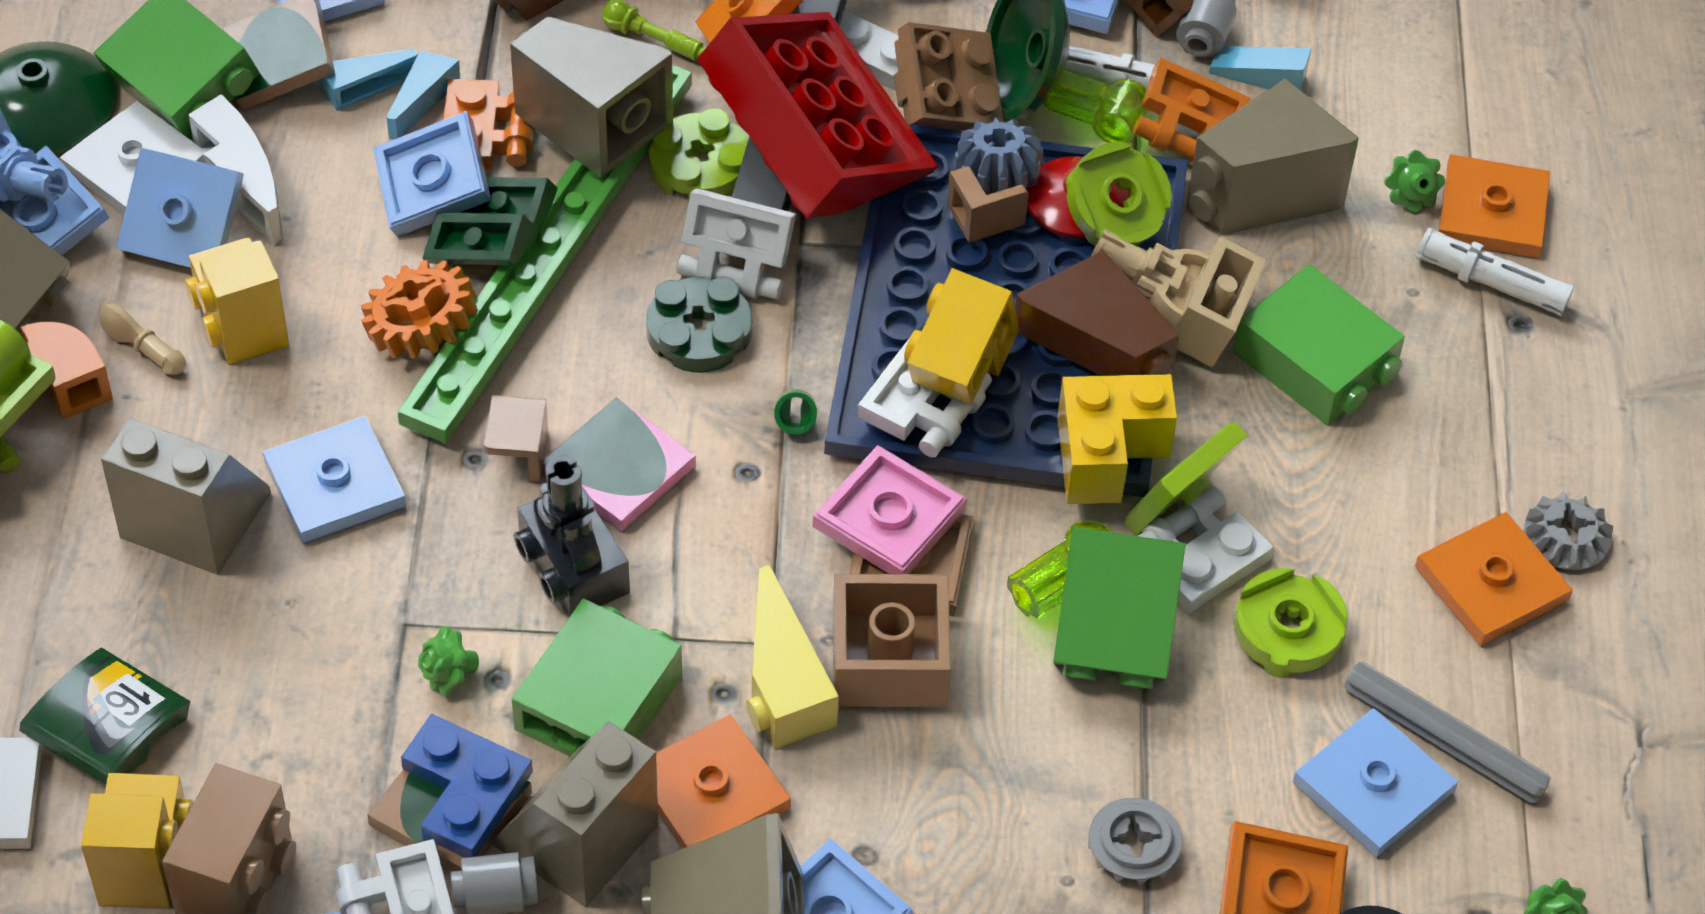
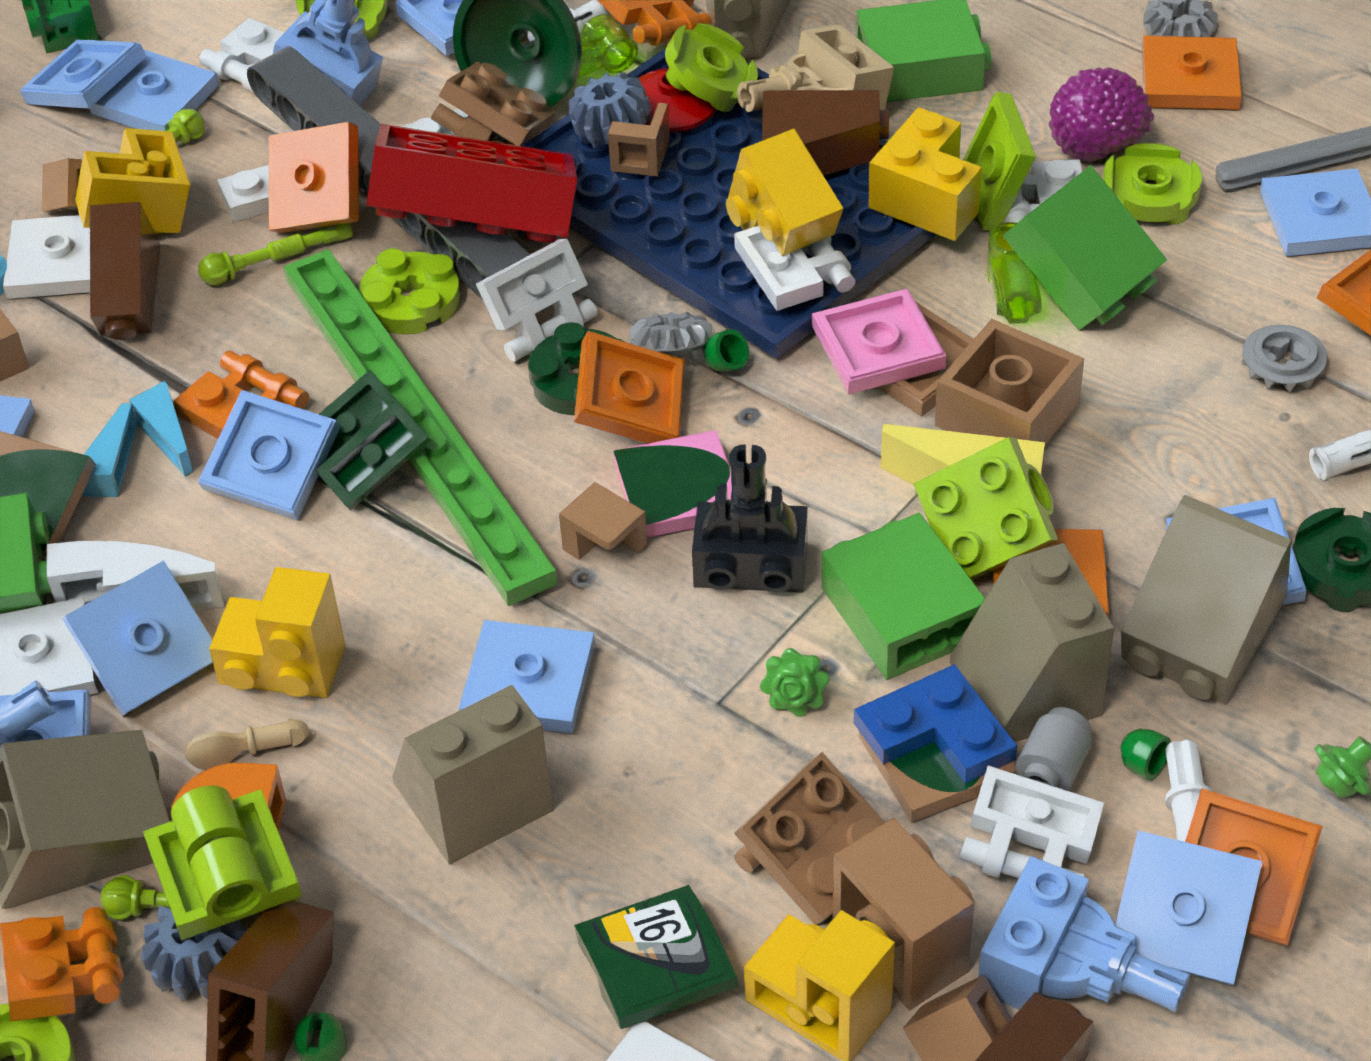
camera: 50 degrees left, 5 degrees down
(295, 747) = (803, 830): none -> medium nougat plate
(419, 309) = (410, 527): orange gear -> none
(591, 90) = (309, 297): dark tan slope -> none
(685, 367) = (629, 390): none -> orange plate
(716, 693) = (989, 507): none -> lime plate
(798, 370) = (671, 333): none -> light grey gear
(1337, 528) = (1099, 114): none -> magenta hair

